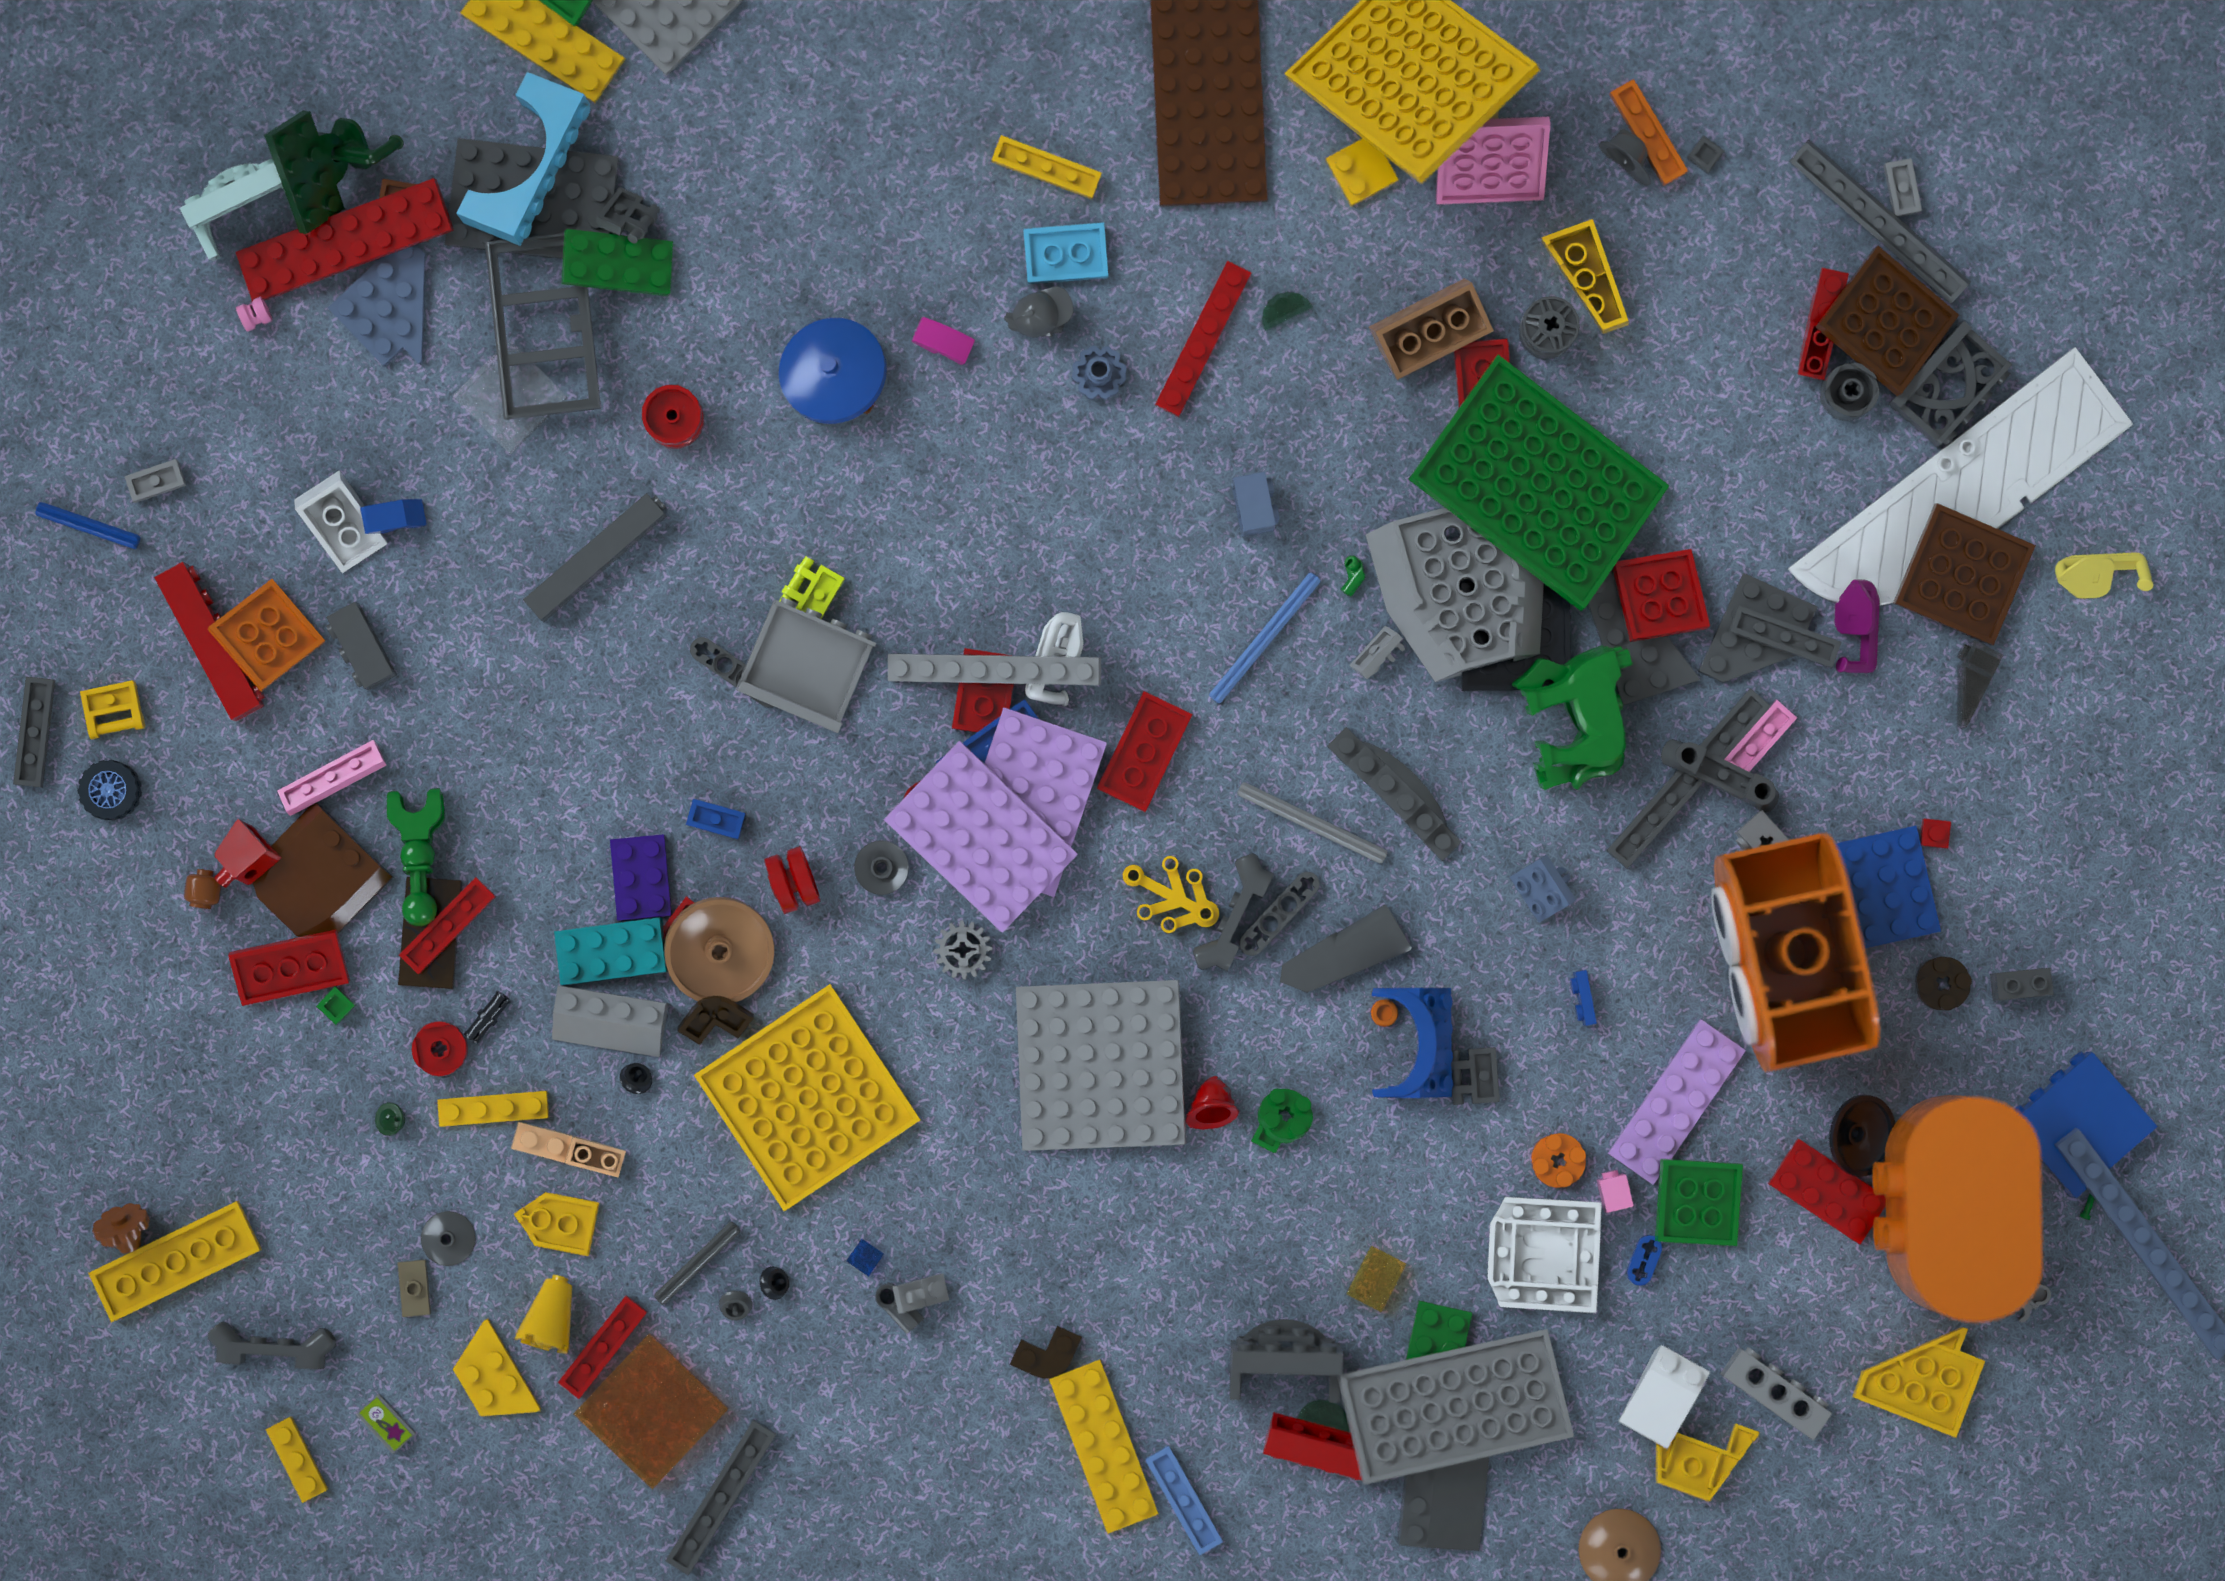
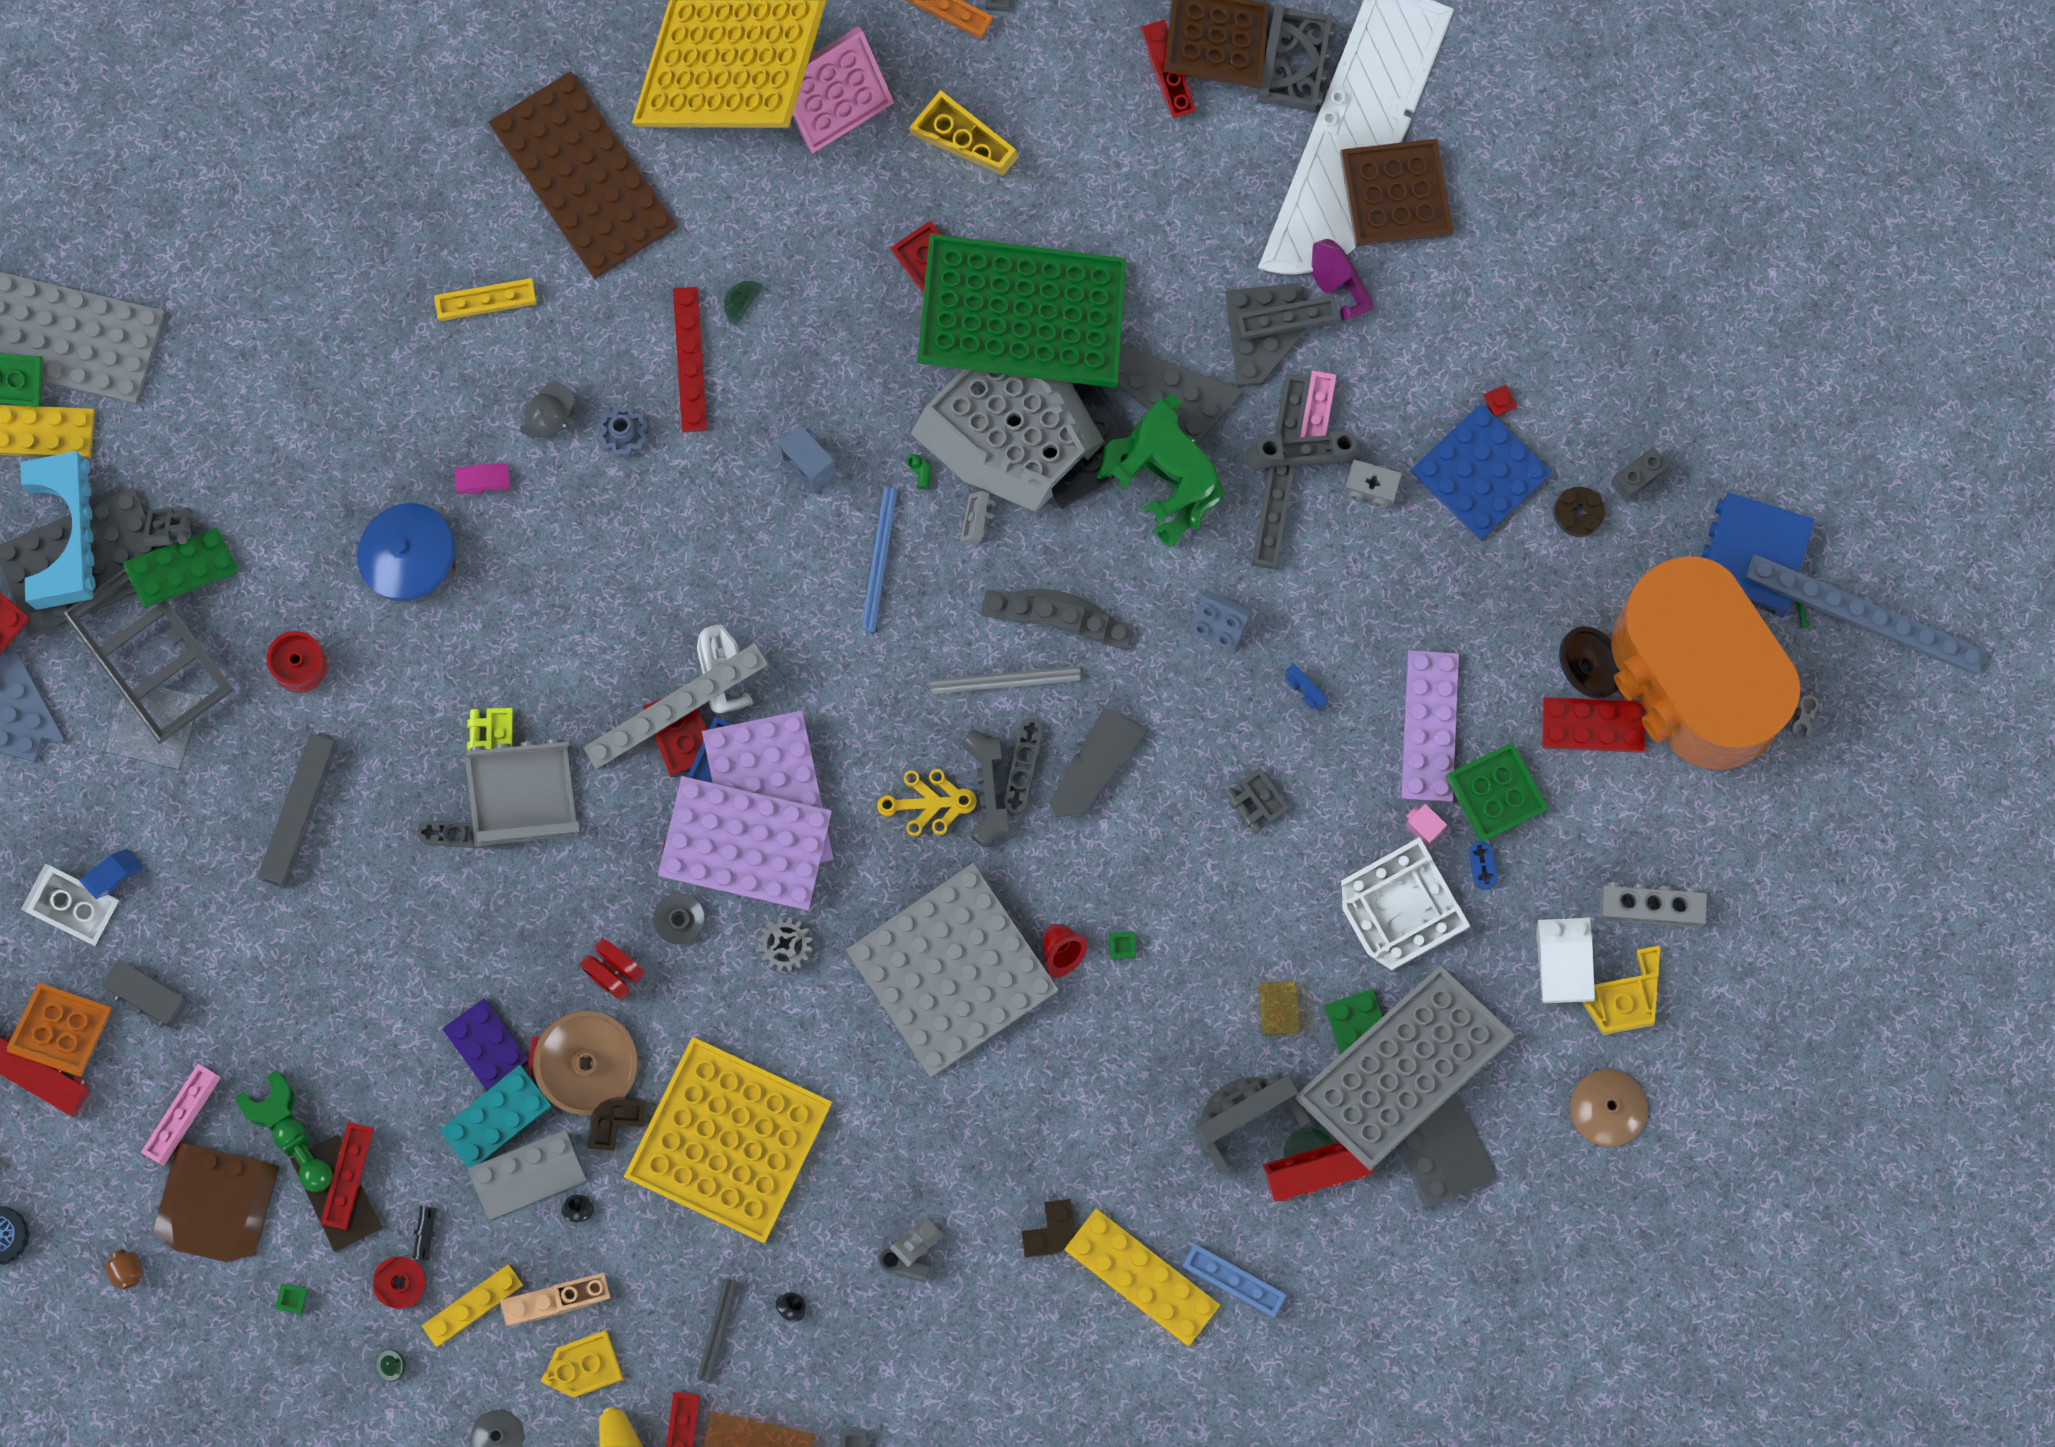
camera: 30 degrees left, 10 degrees down
(244, 855) = (143, 1220): red torso -> none
(289, 967) = (233, 1290): red plate -> none
(716, 819) = (520, 960): blue plate -> none
(735, 1305) = (769, 1344): dark grey hat -> none
(865, 1257) = (853, 1242): clear blue tile -> none
(1065, 253) = (540, 356): medium azure plate -> none
(1144, 751) = (837, 703): red plate -> none
(1292, 1102) = (1125, 908): green plate -> none
(1361, 171) = (737, 160): yellow plate -> none
(1384, 1012) = (1155, 794): orange tile -> none
(1431, 328) = (865, 246): medium nougat slope -> none
(1432, 1070) = (1221, 816): blue piece -> none
(1533, 326) = (960, 205): dark grey wheel -> none
(1553, 1145) = (1356, 838): orange plate -> none
(1629, 153) = (940, 30): dark grey piece -> none
(1660, 595) = (1171, 343): red plate -> none
(1794, 952) = (1447, 544): orange brick -> none
(1864, 391) = (1221, 120): dark grey brick -> none
(1925, 1383) = (1765, 828): yellow wing -> none
(1973, 676) = (1452, 264): clear smoke slope -> none
(2092, 574) = (1494, 134): light yellow piece -> none

